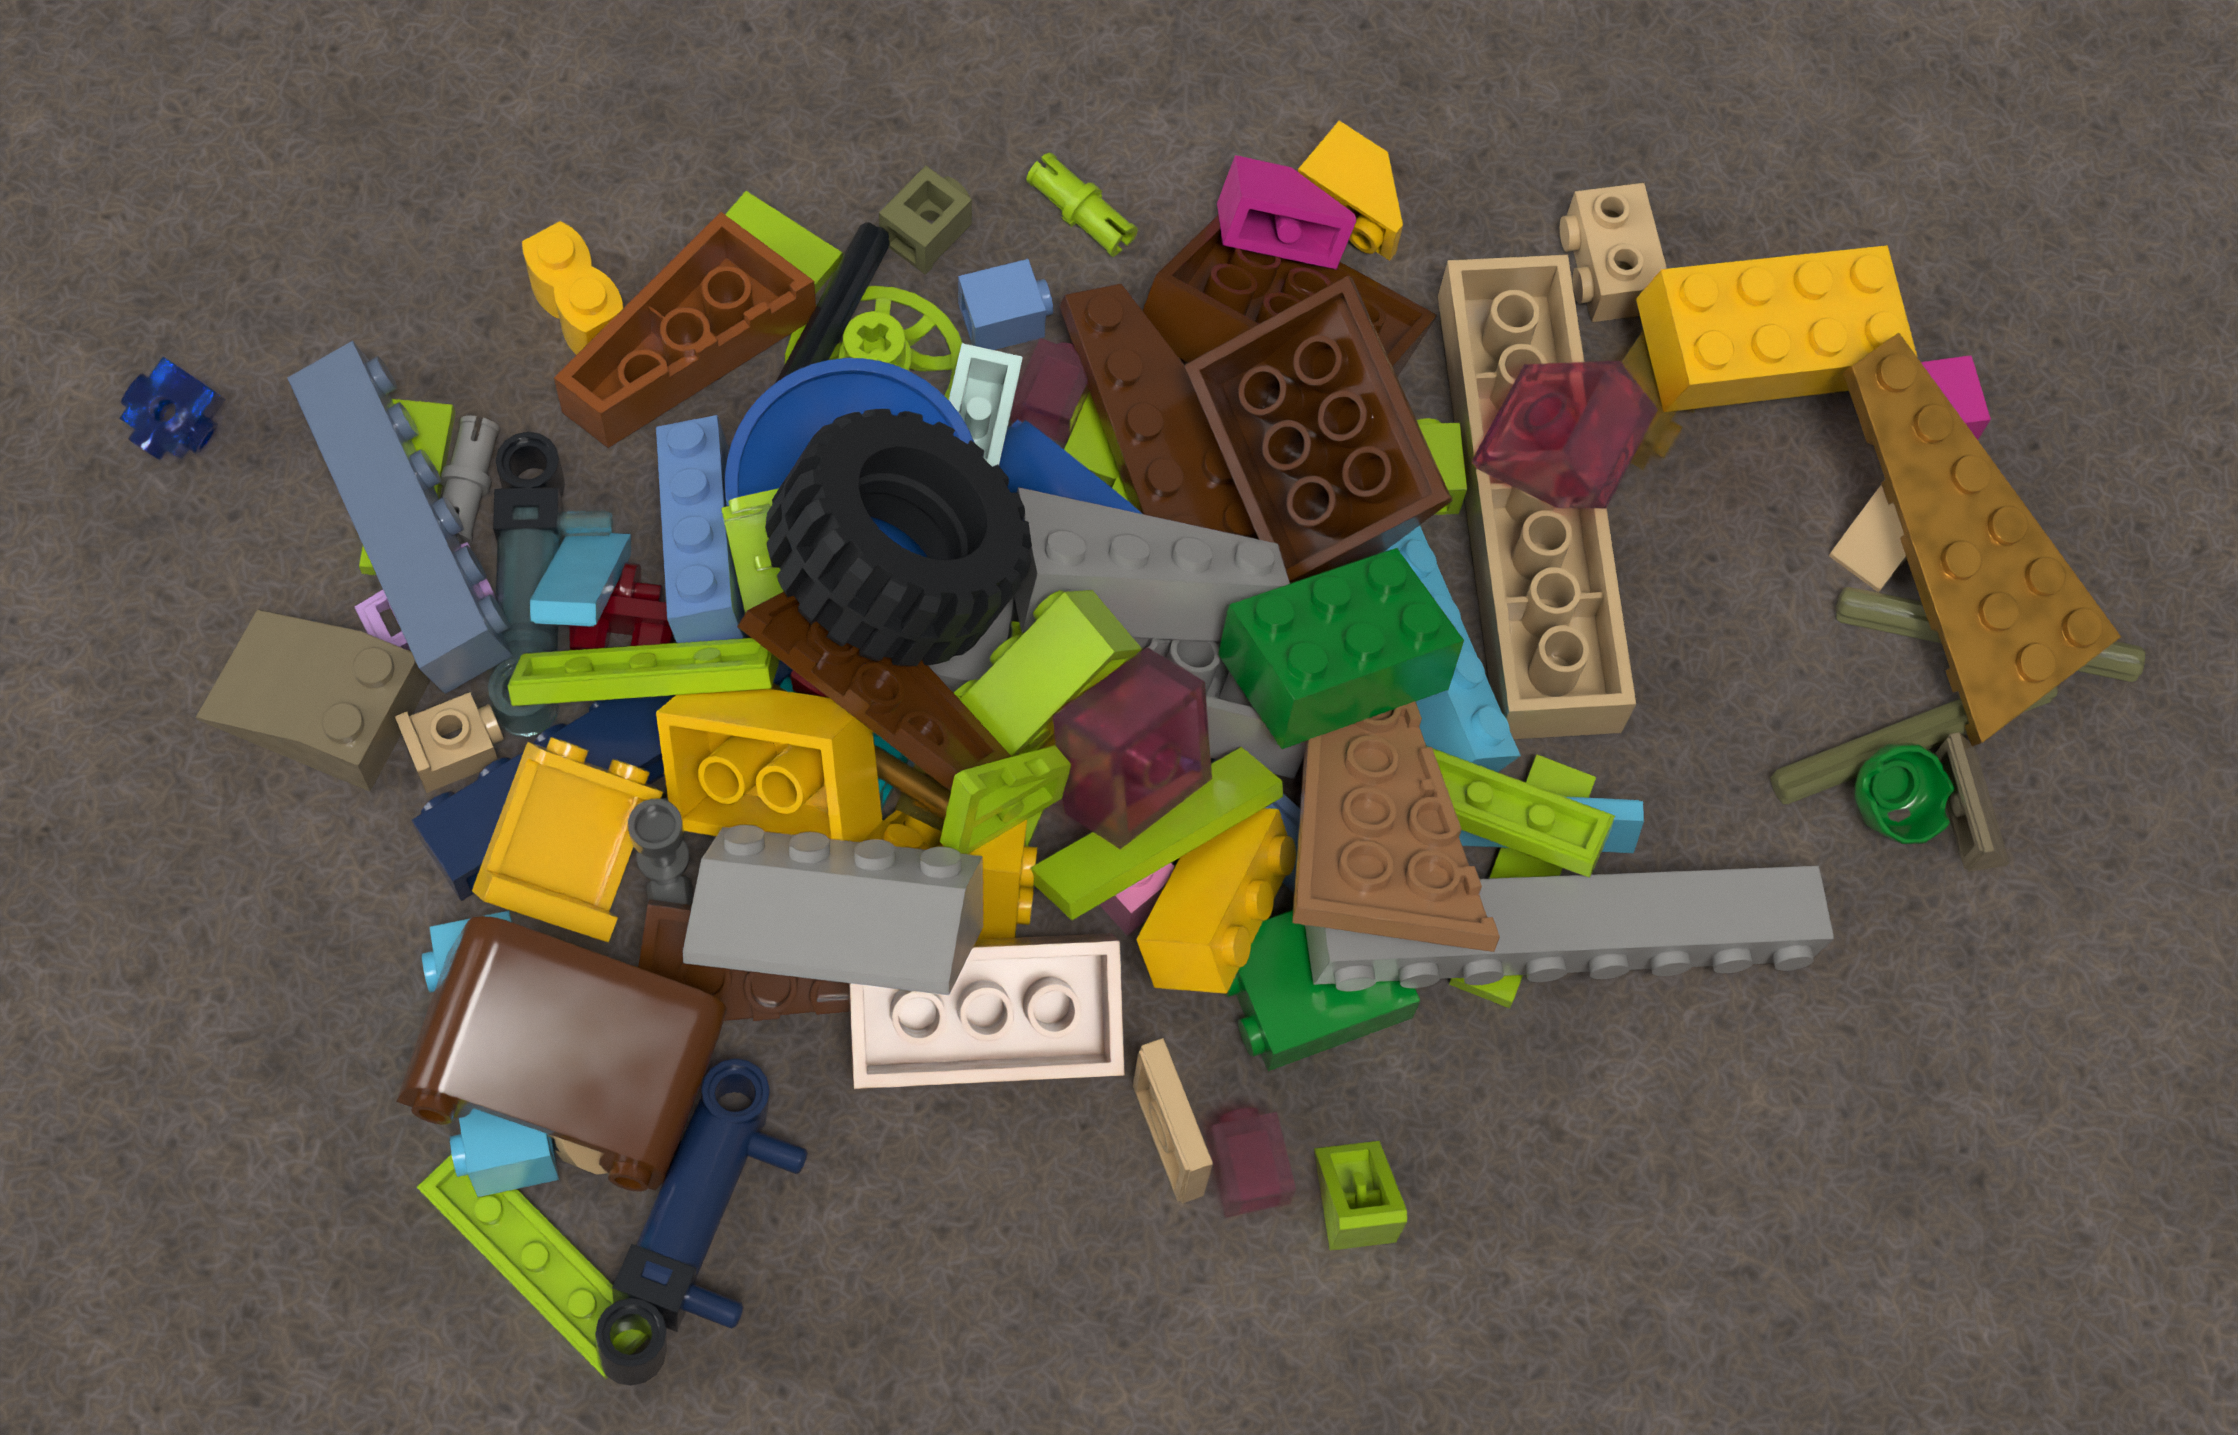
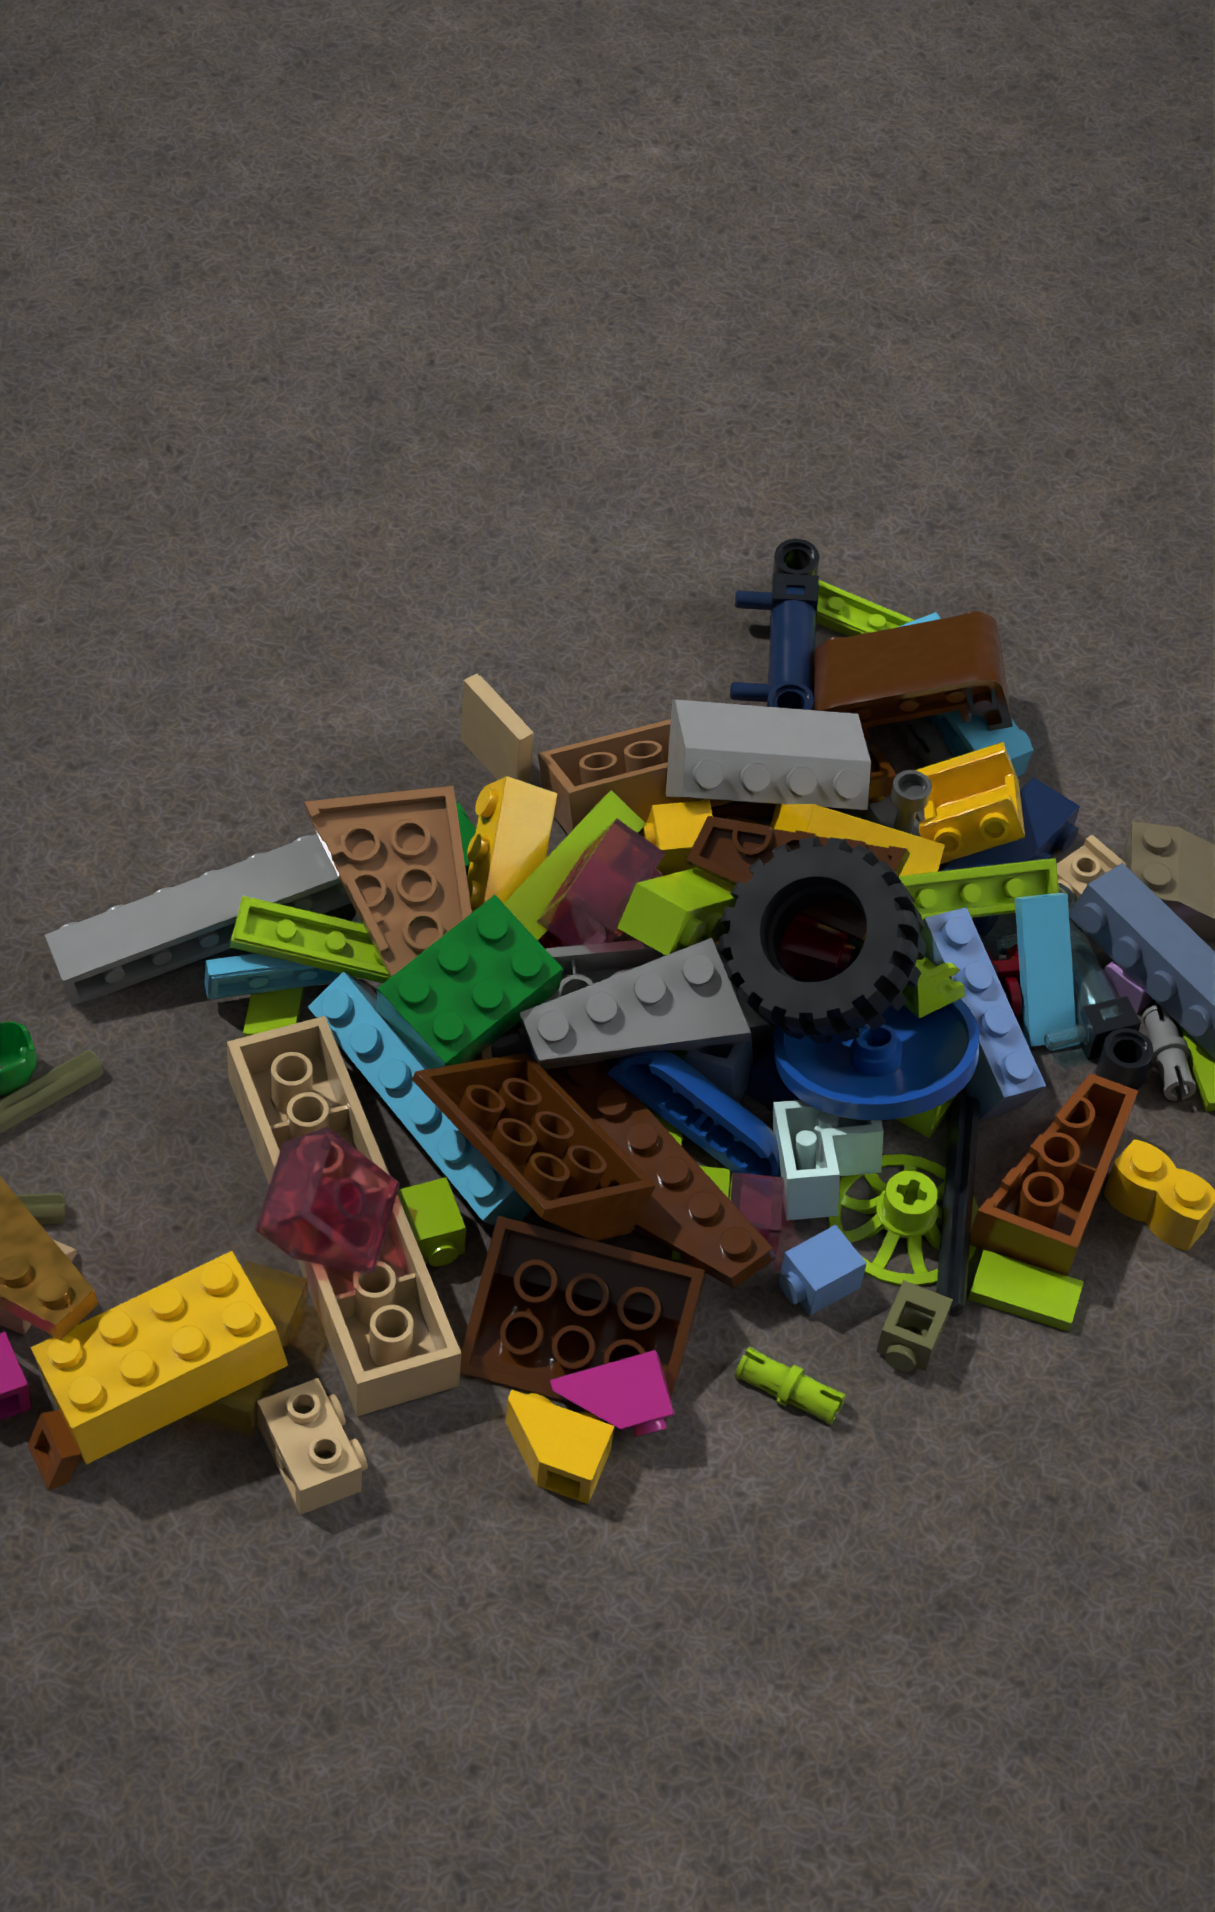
camera: 165 degrees right, 15 degrees down
(1001, 796) = (686, 818): lime wing -> none
(1250, 1162) = (435, 744): clear pink brick -> none
(1359, 1196) = (355, 737): lime slope -> none

